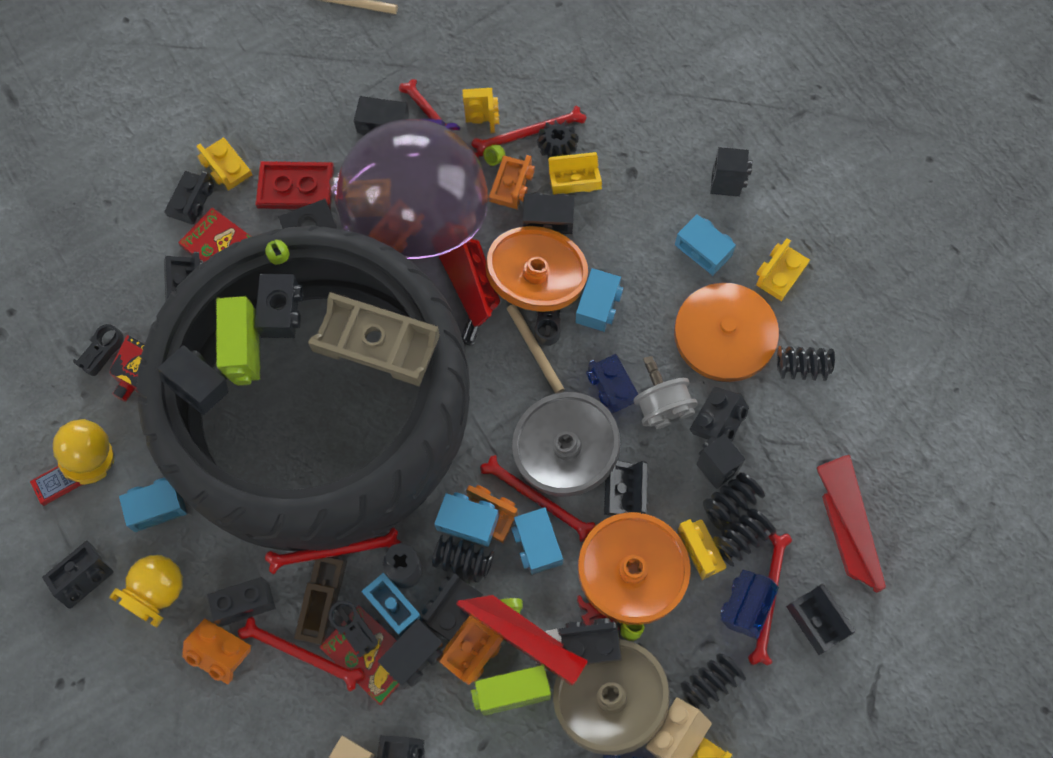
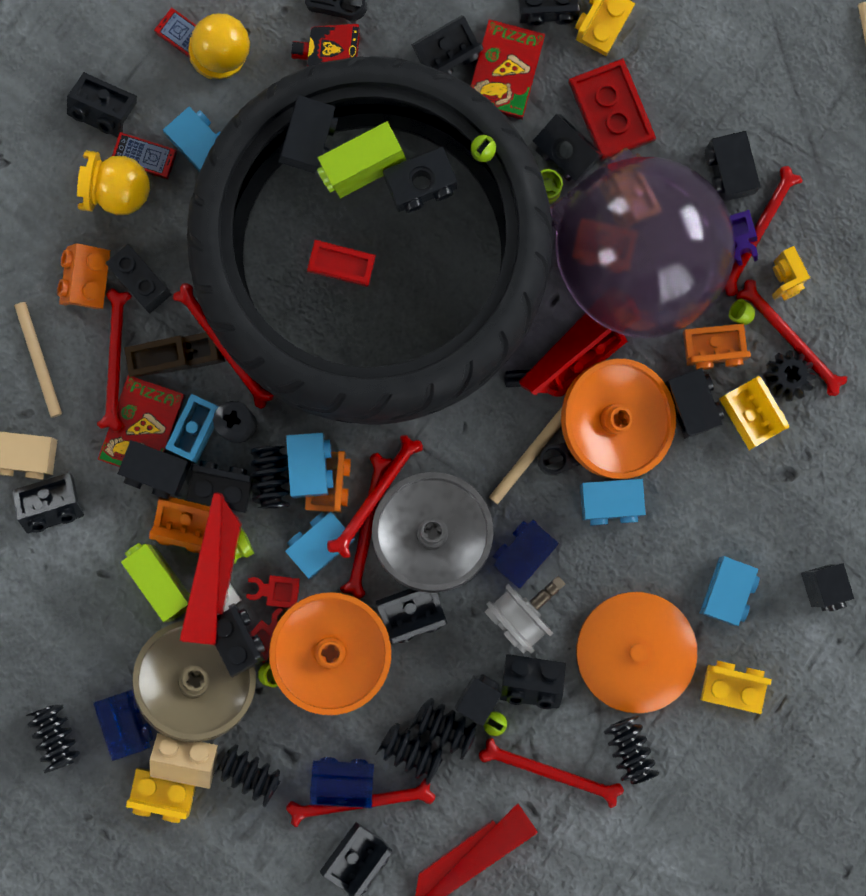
camera: 60 degrees right, 15 degrees up
(146, 544) = (152, 156): none -> tile
(267, 724) = (38, 359): none -> tan bar
(313, 403) = (341, 263): none -> red tile
(356, 631) = (156, 405): black piece -> none
(404, 343) = (431, 329): dark tan piece -> none
(545, 516) = (341, 544): none -> red piece
(562, 592) = (279, 591): none -> red plate
(701, 548) = (381, 715): yellow bracket -> none
(748, 465) = (498, 718): none -> lime hinge
(766, 473) = (608, 792): none -> red piece

